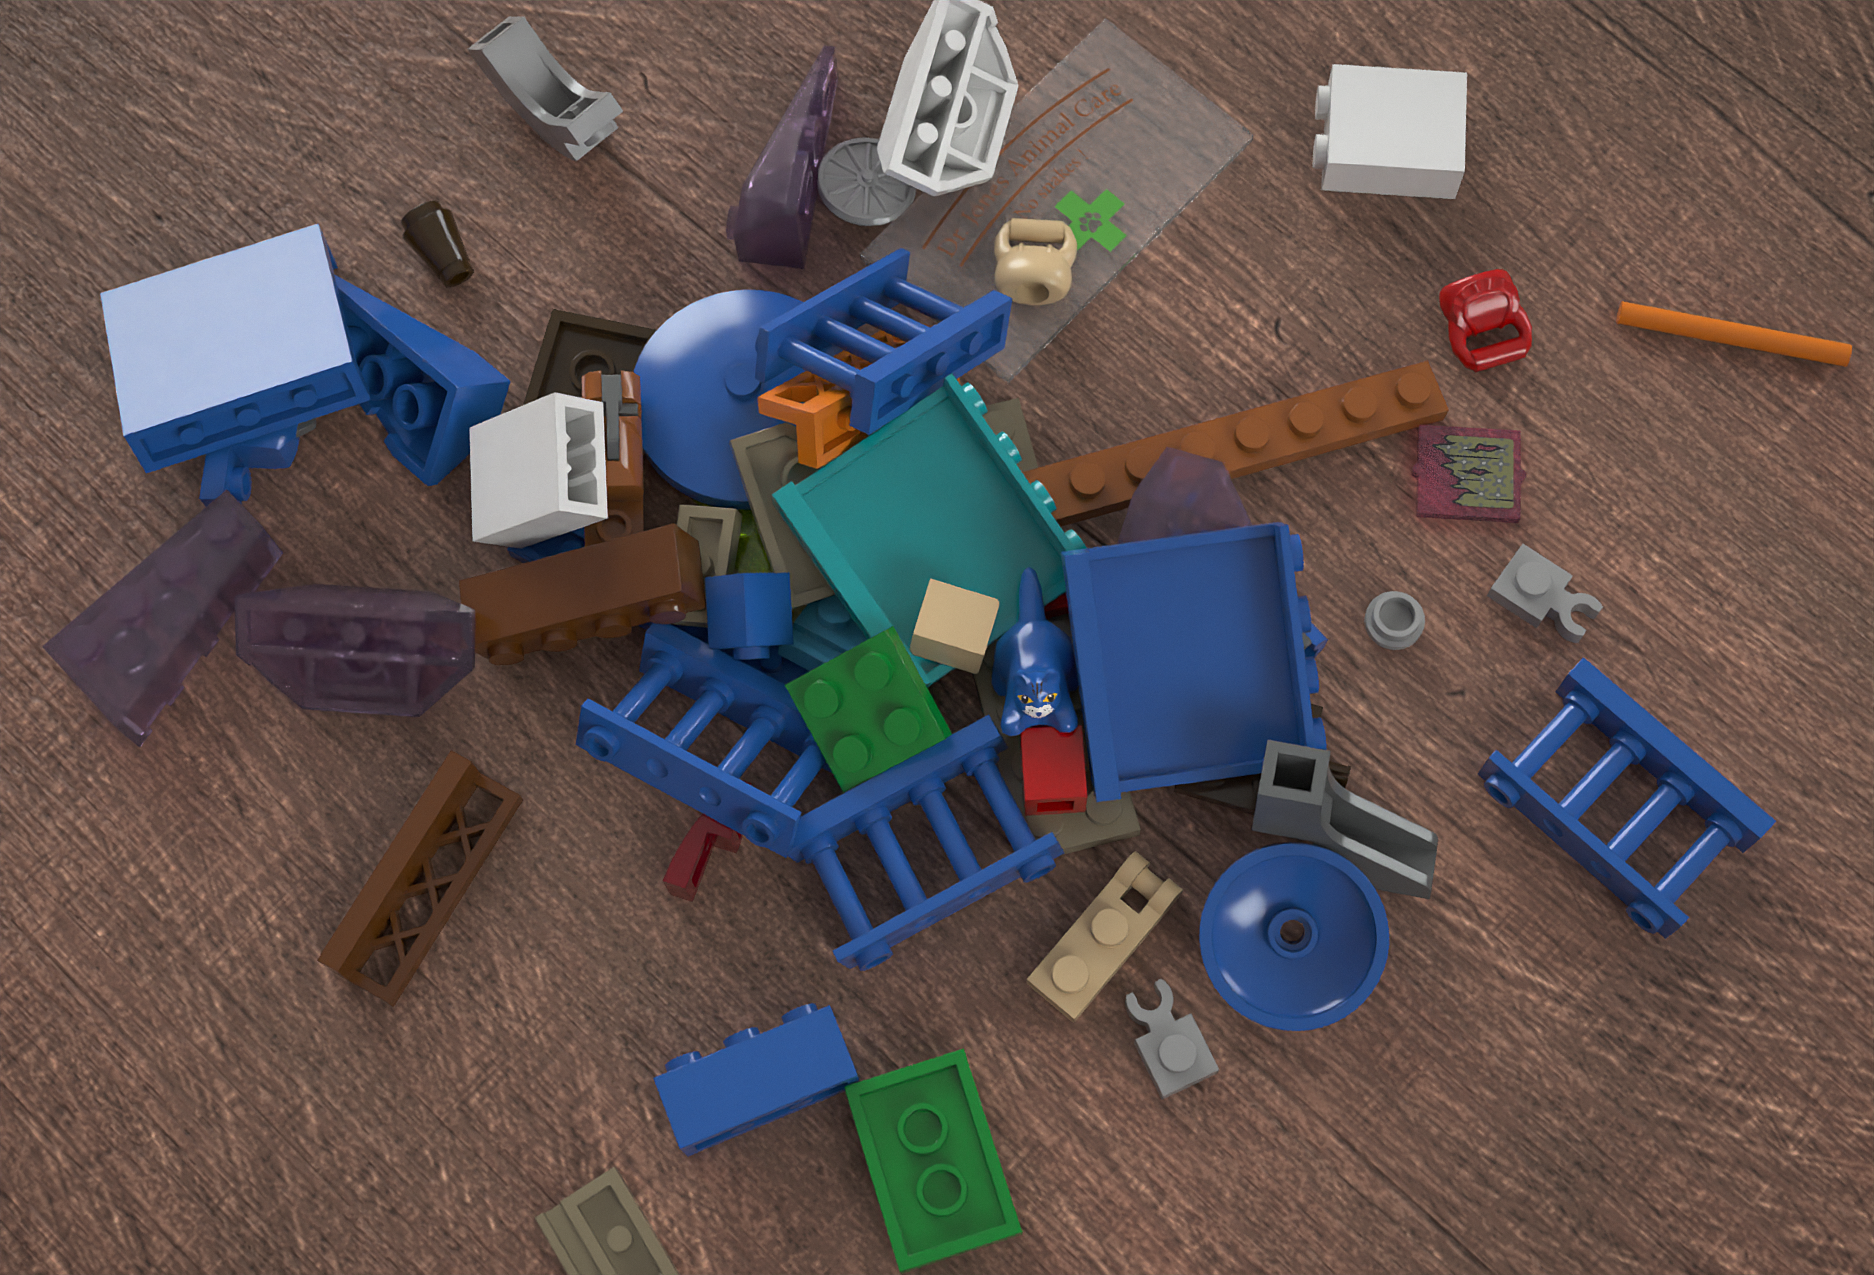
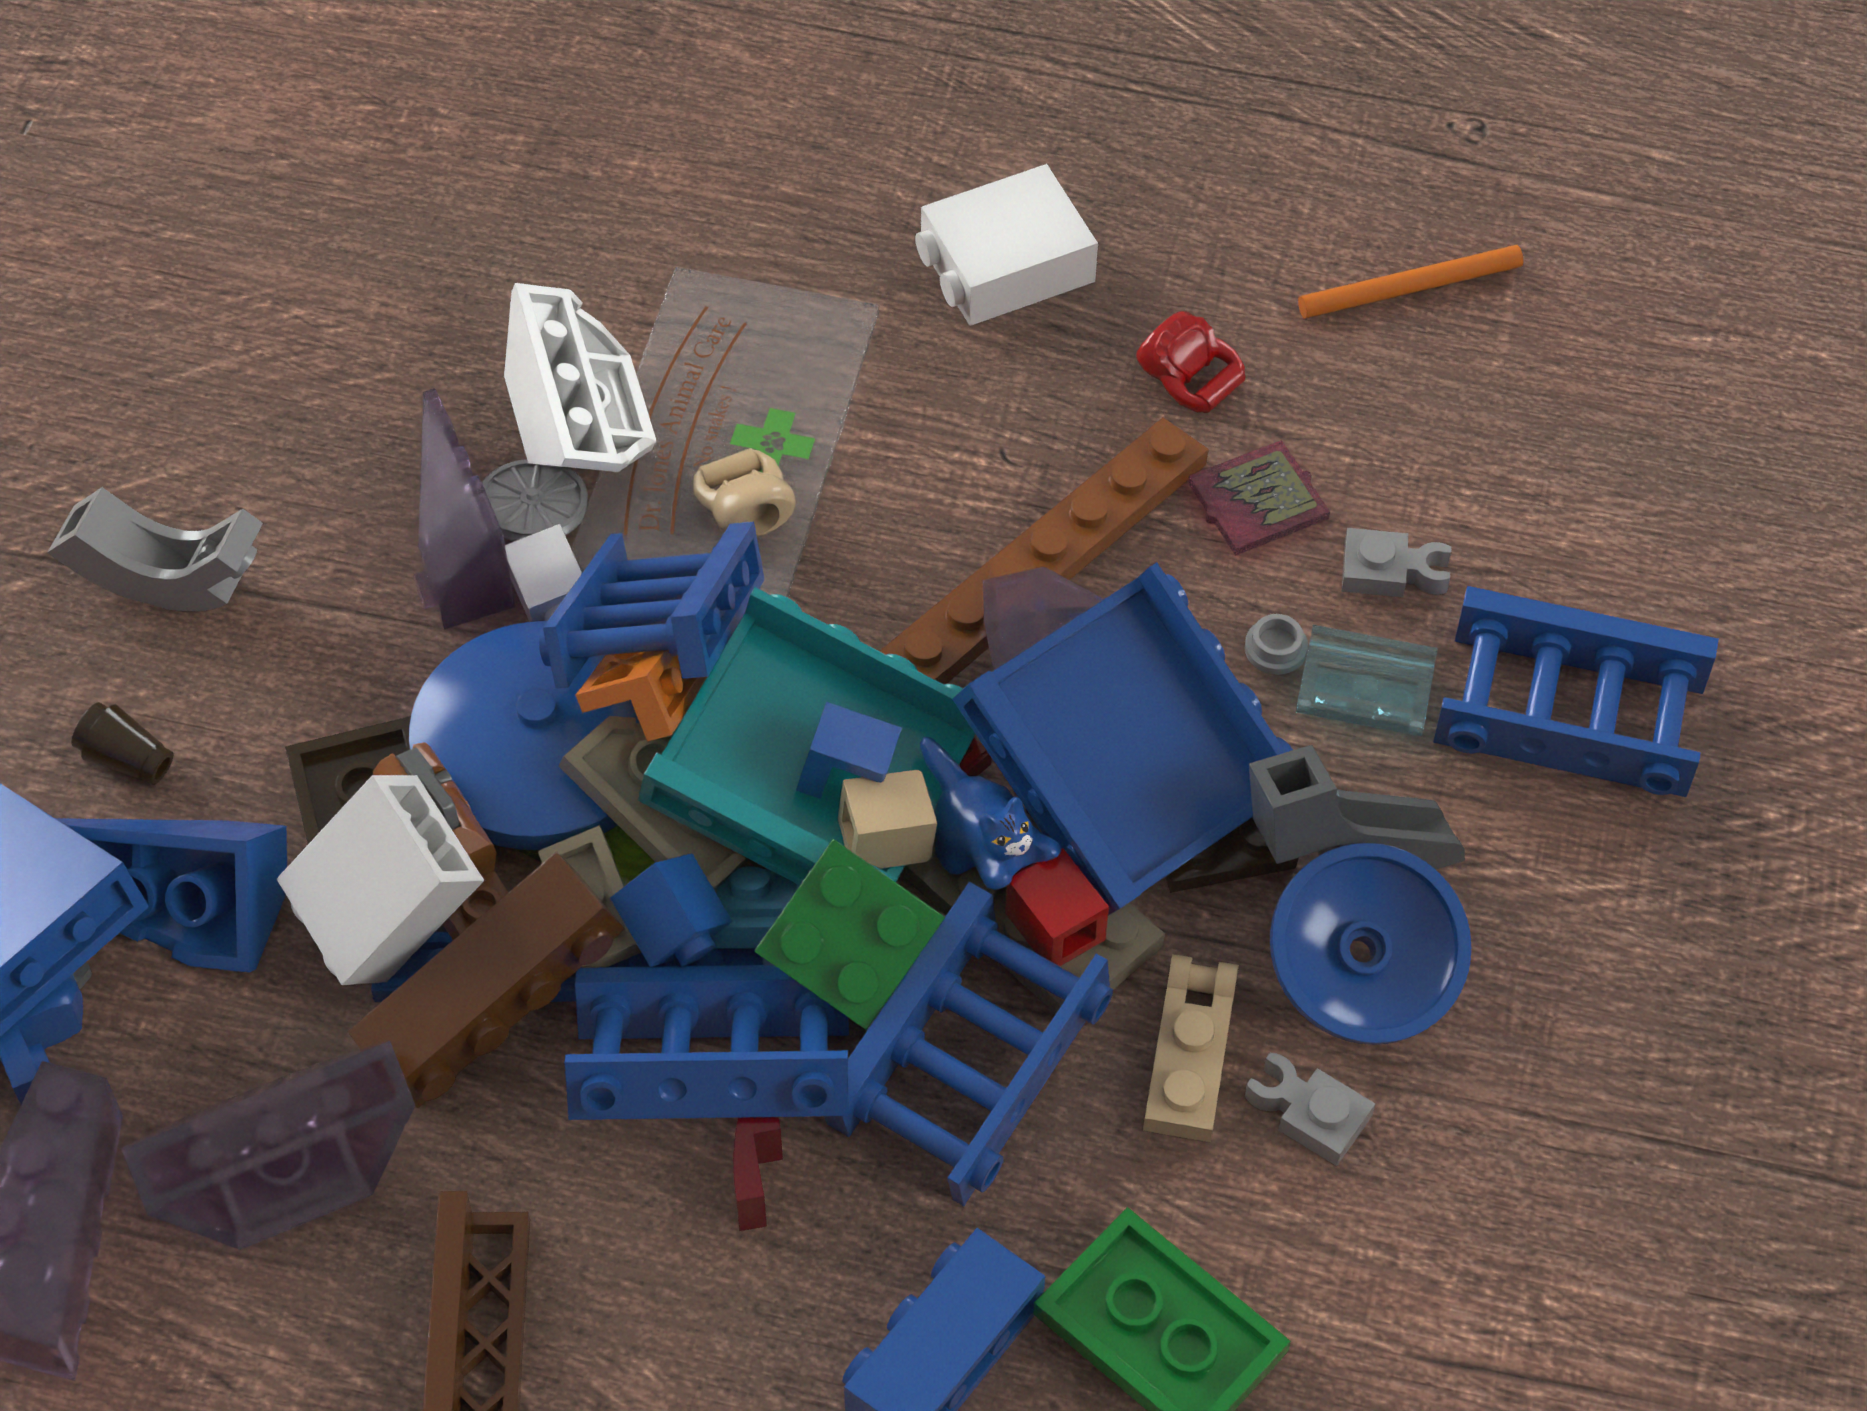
camera: 35 degrees left, 15 degrees down
(829, 254) = (542, 571): none -> white brick
(953, 551) = (850, 744): none -> blue panel
(1450, 693) = (1367, 680): none -> clear light blue plate

